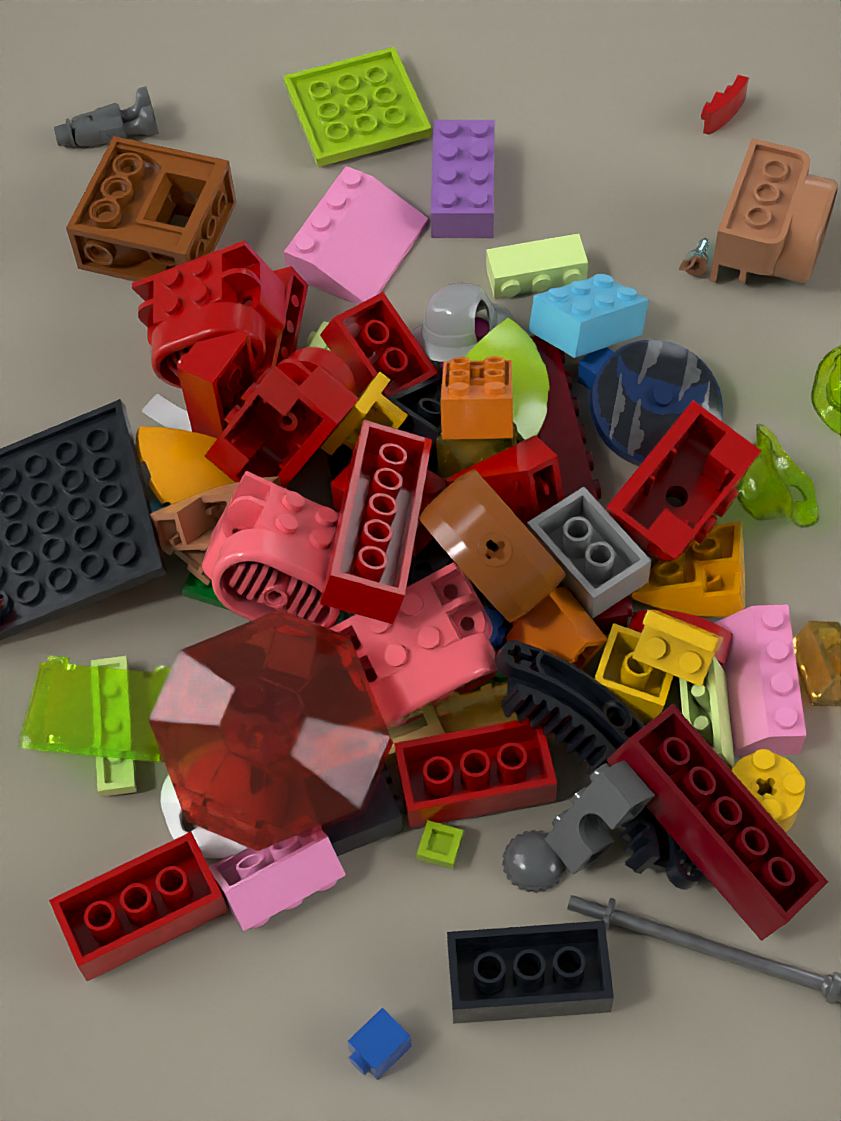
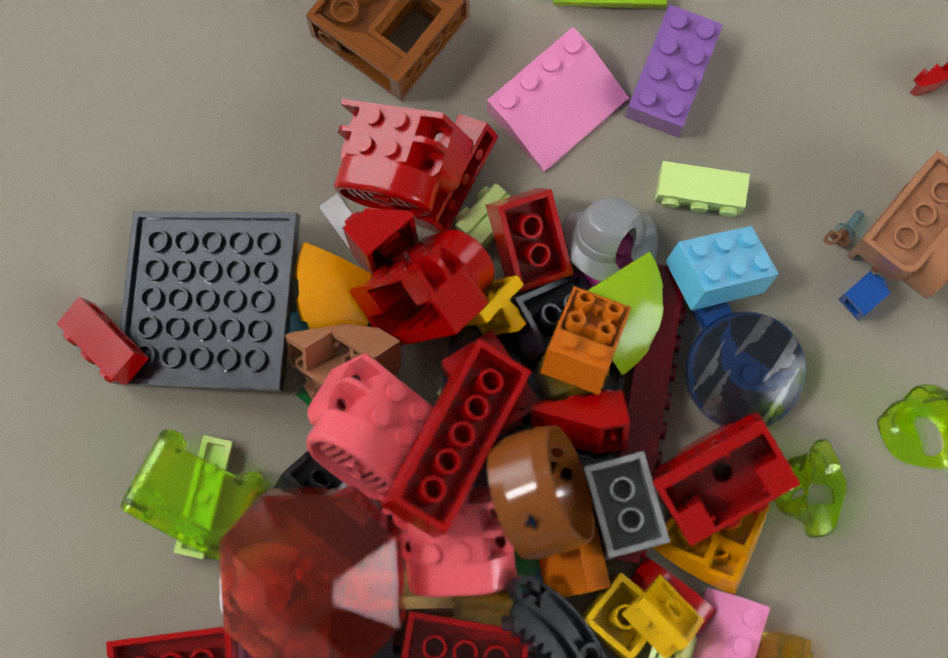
camera: 20 degrees right, 20 degrees up
(744, 304) = (865, 295): none -> blue brick

